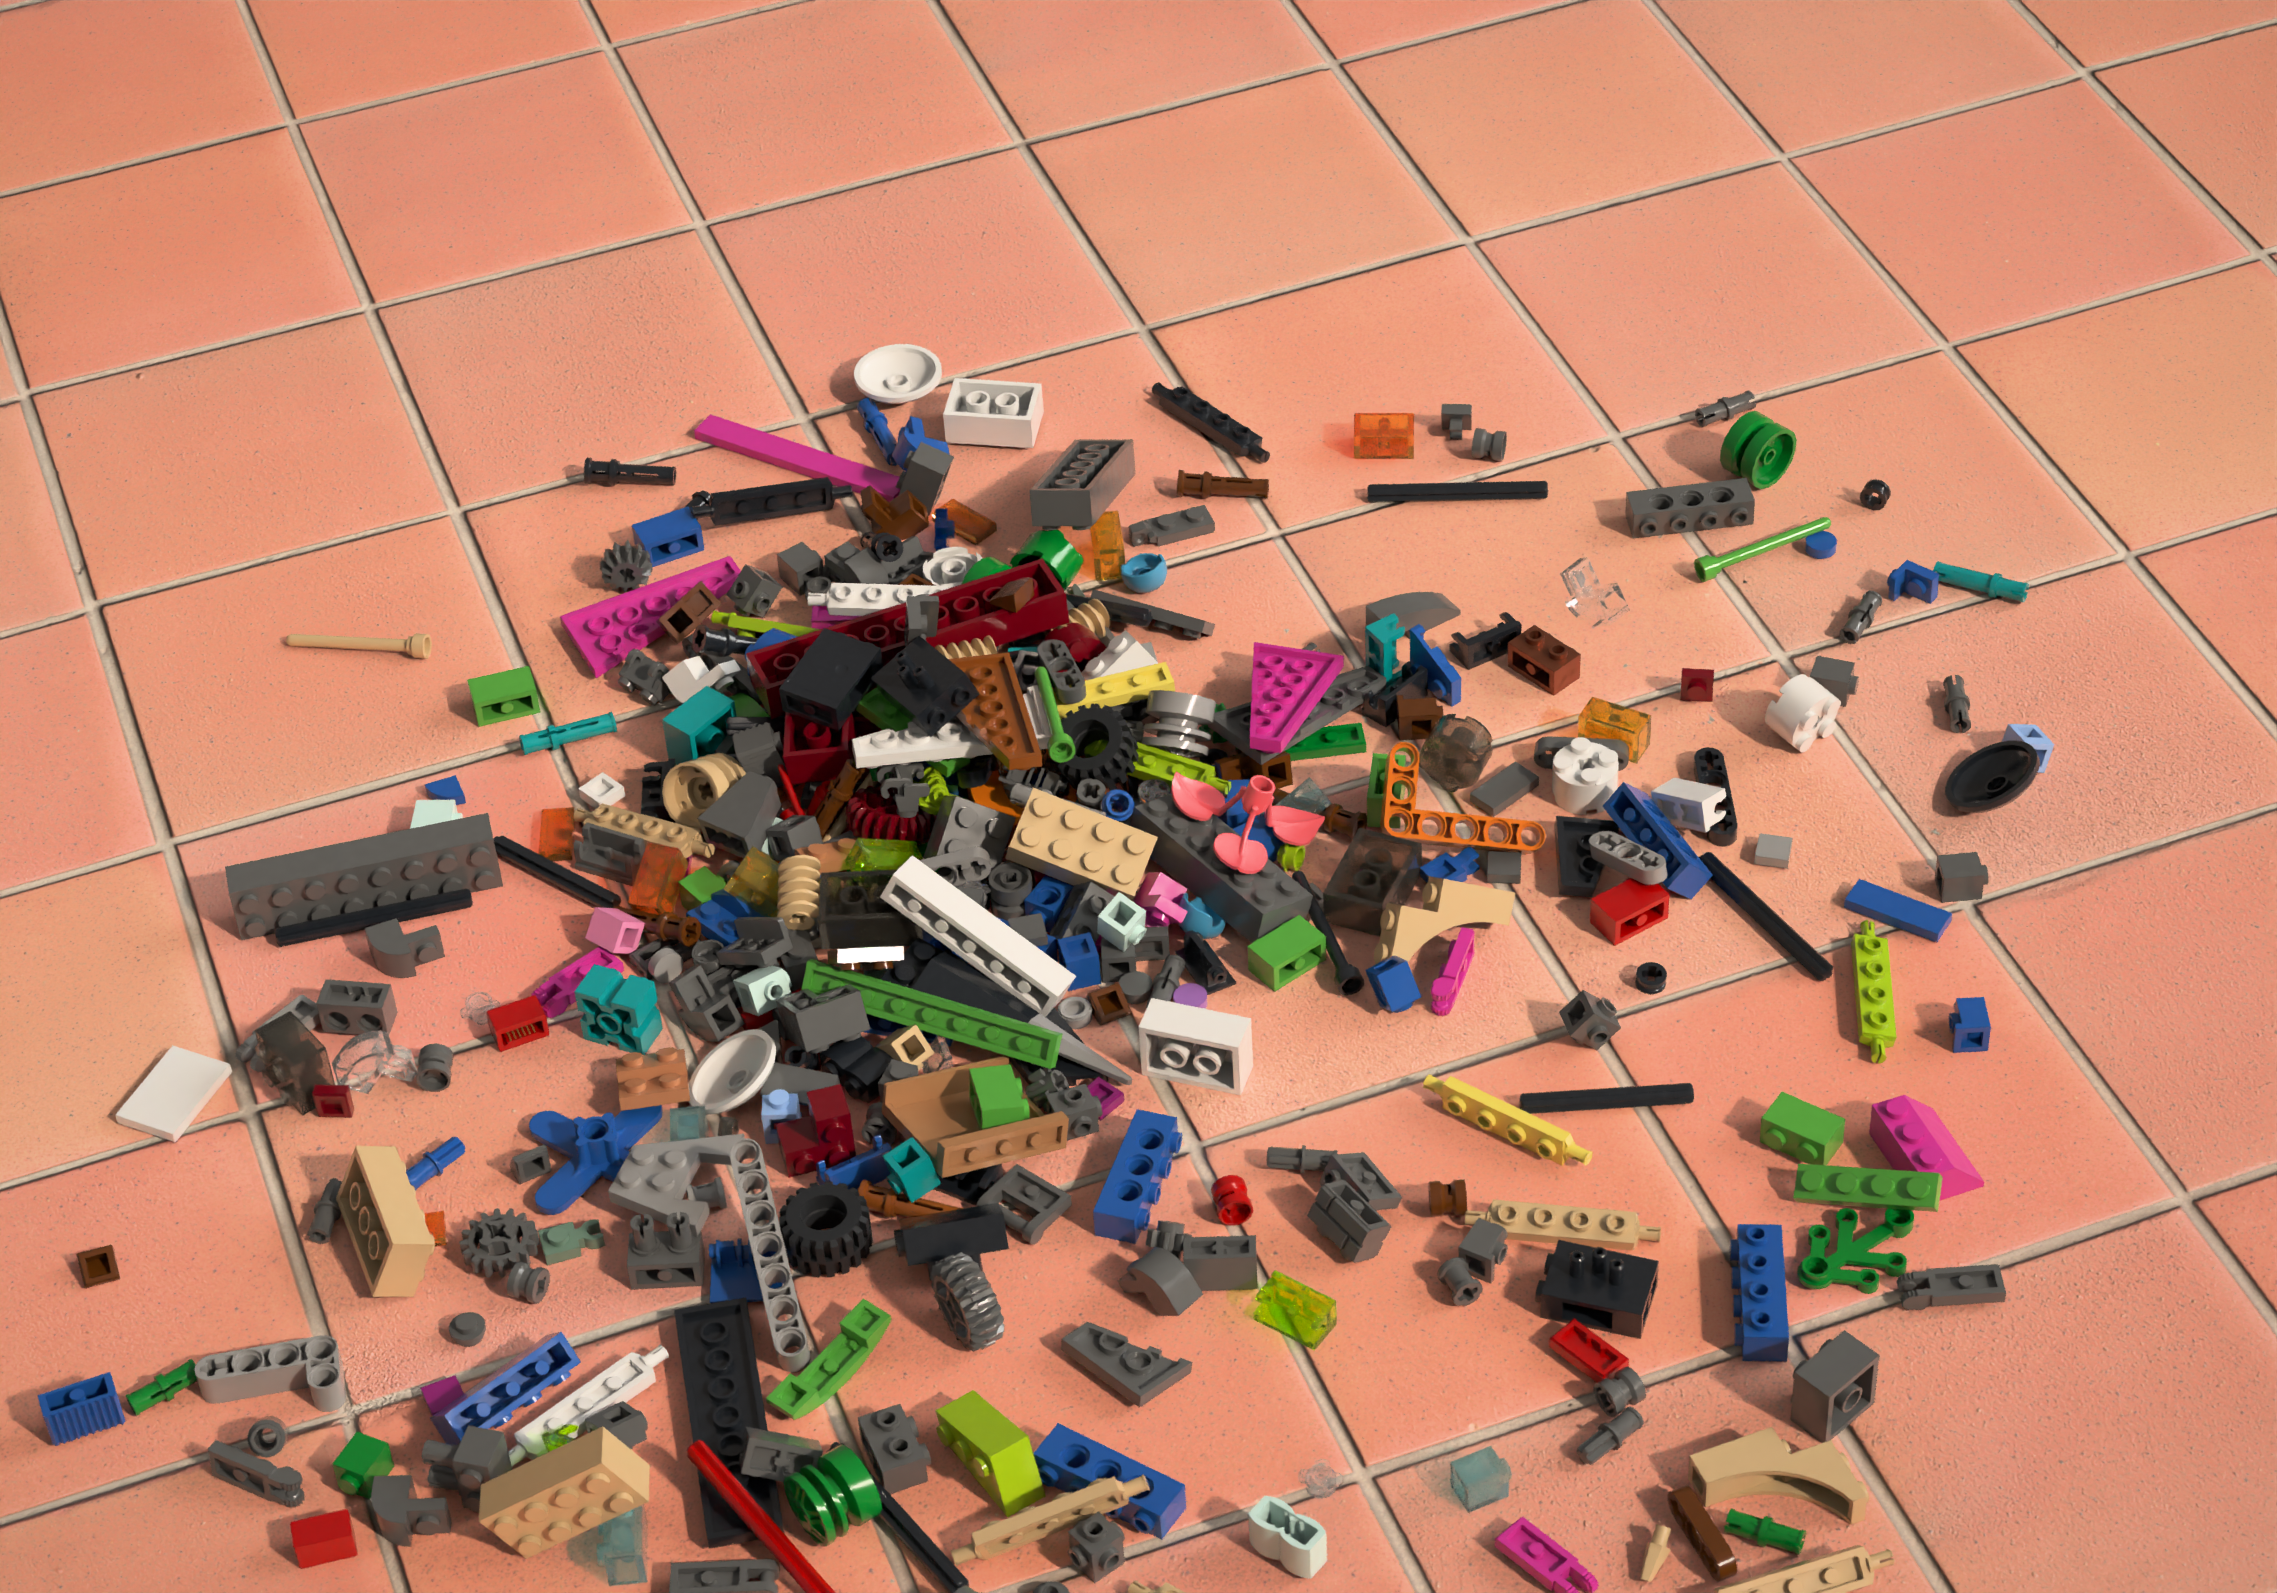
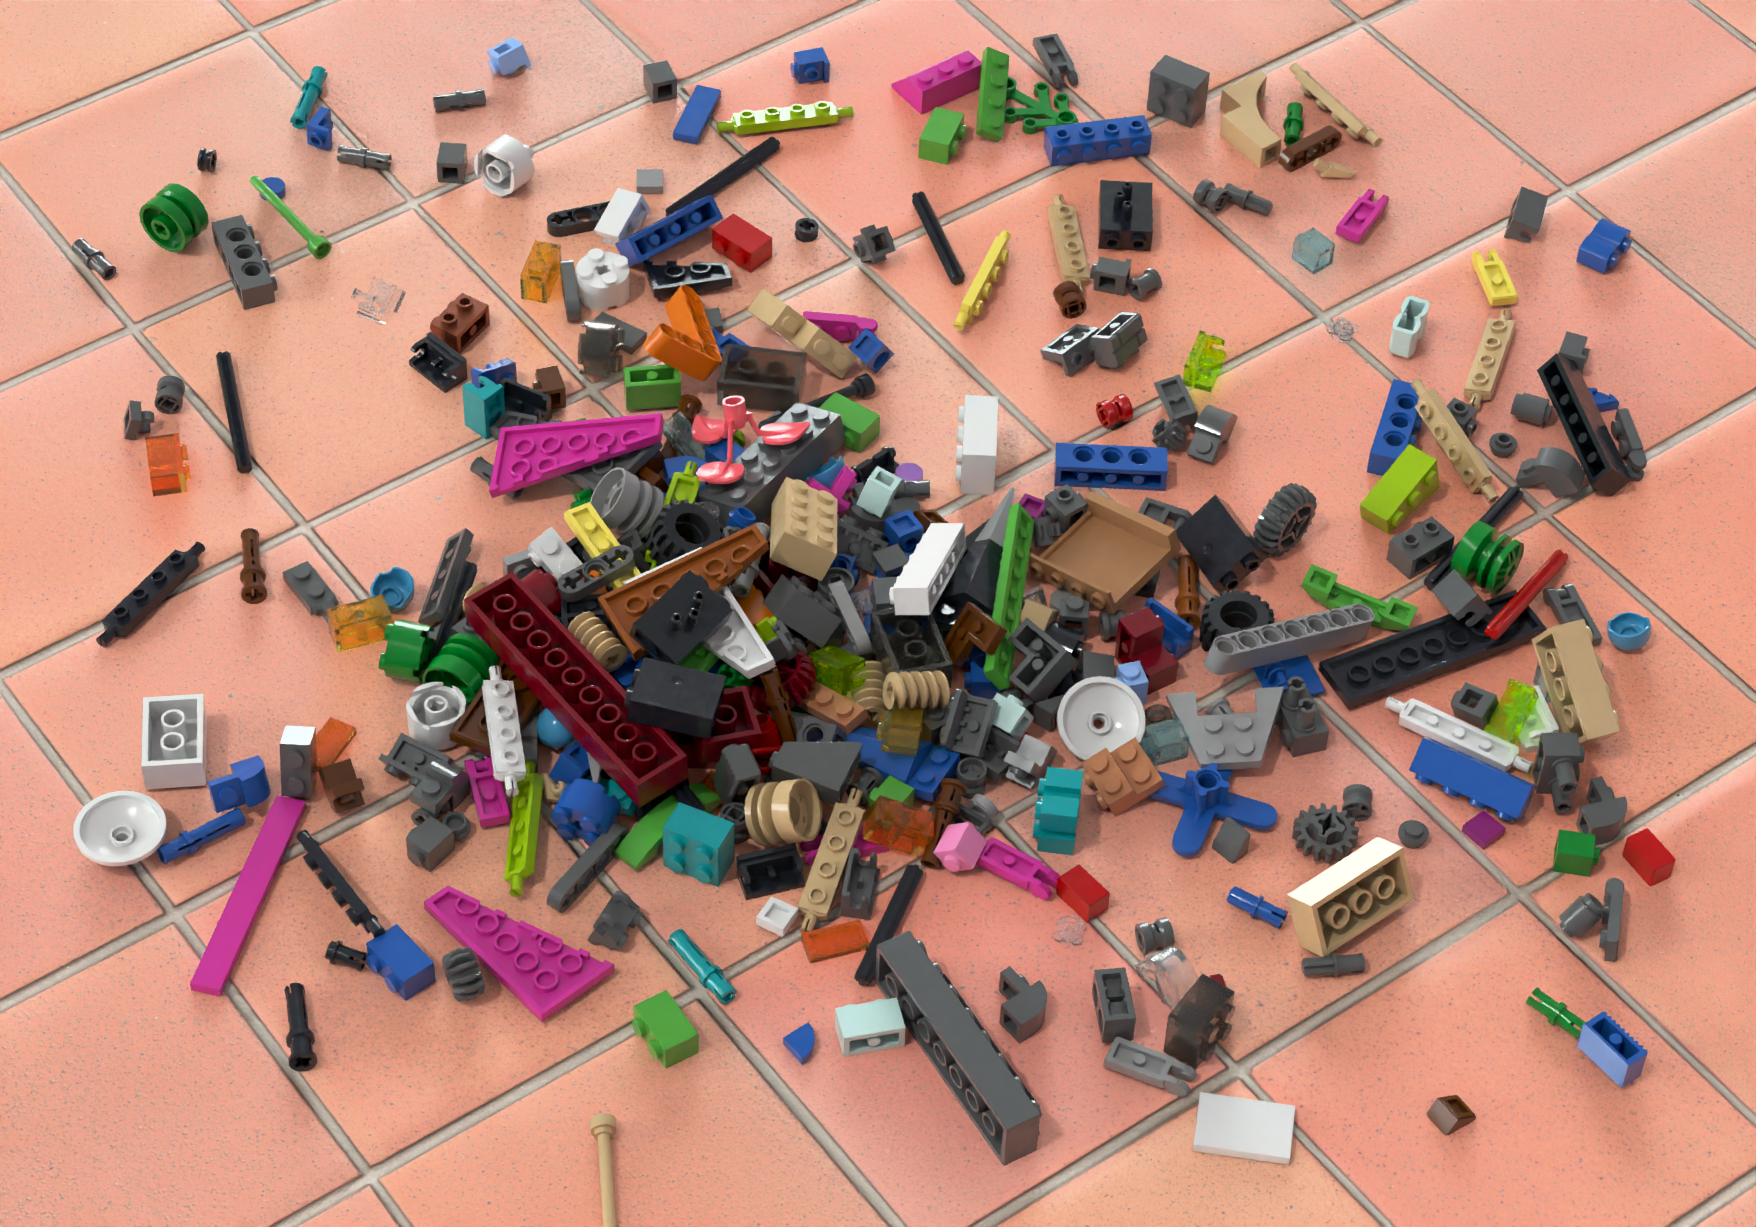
camera: 110 degrees left, 5 degrees up
(276, 1369) = (1497, 921): light grey beam -> none
(565, 1242) = (1296, 797): sand green plate -> none
(688, 612) = (538, 906): reddish brown brick -> none
(693, 675) = (626, 867): white brick -> none
(722, 641) = (575, 849): black pin -> none
(753, 591) = (480, 864): dark grey brick -> none
(881, 543) = (410, 760): black pin -> none
(910, 1170) = (1177, 571): teal brick -> none
(920, 617) = (609, 639): dark grey bracket -> none
(943, 529) = (360, 748): clear blue plate -> none
(996, 1096) = (1087, 538): bright green brick -> none
(1014, 595) = (529, 598): reddish brown slope -> none
(1060, 745) = (715, 533): bright green piece -> none
(1082, 483) = (308, 624): dark grey brick -> none
(1123, 1366) = (1288, 442): dark grey wing -> none
(1298, 1158) = (1057, 381): dark grey axle -> none
(1413, 609) = (417, 412): dark grey slope -> none
(1587, 1351) = (1180, 216): red plate -> none
(1613, 849) = (703, 225): light grey beam -> none
(1697, 685) = (474, 234): dark red plate -> none
(1992, 777) = (554, 50): black dish -> none

